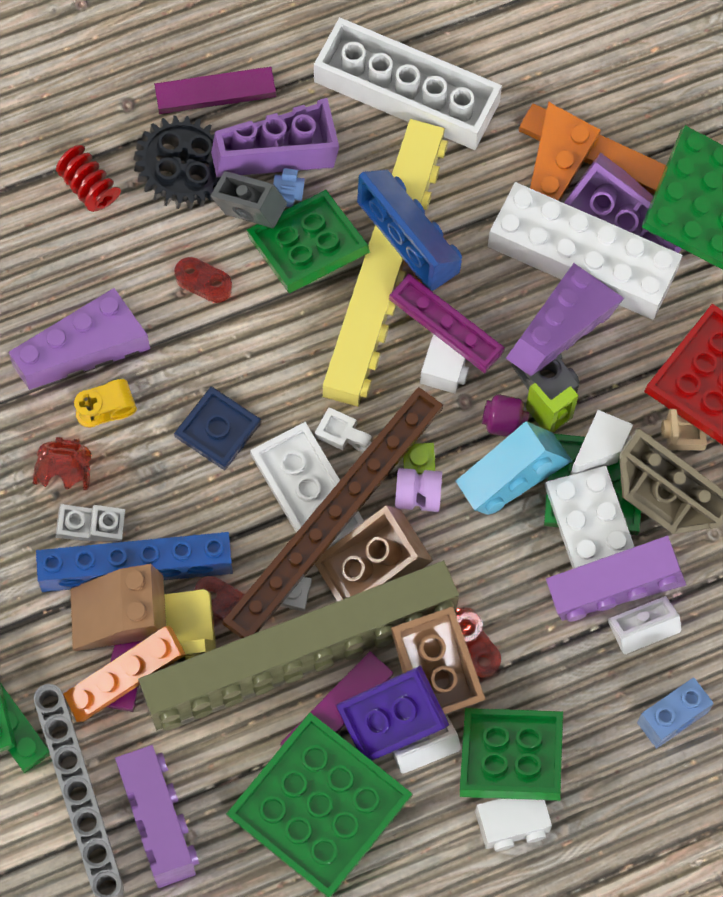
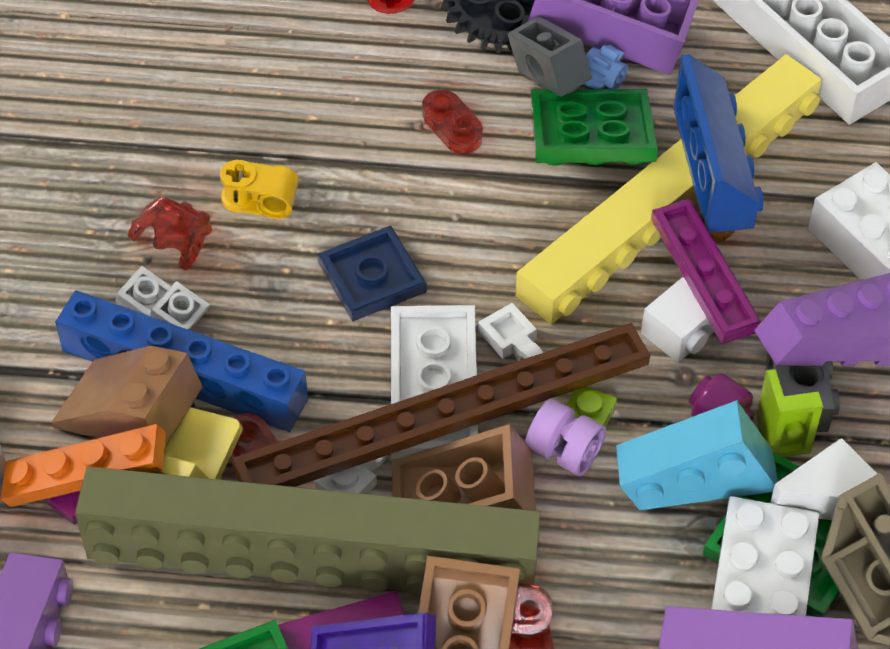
camera: 30 degrees right, 15 degrees down
(80, 341) = (271, 117): medium lavender wedge -> none

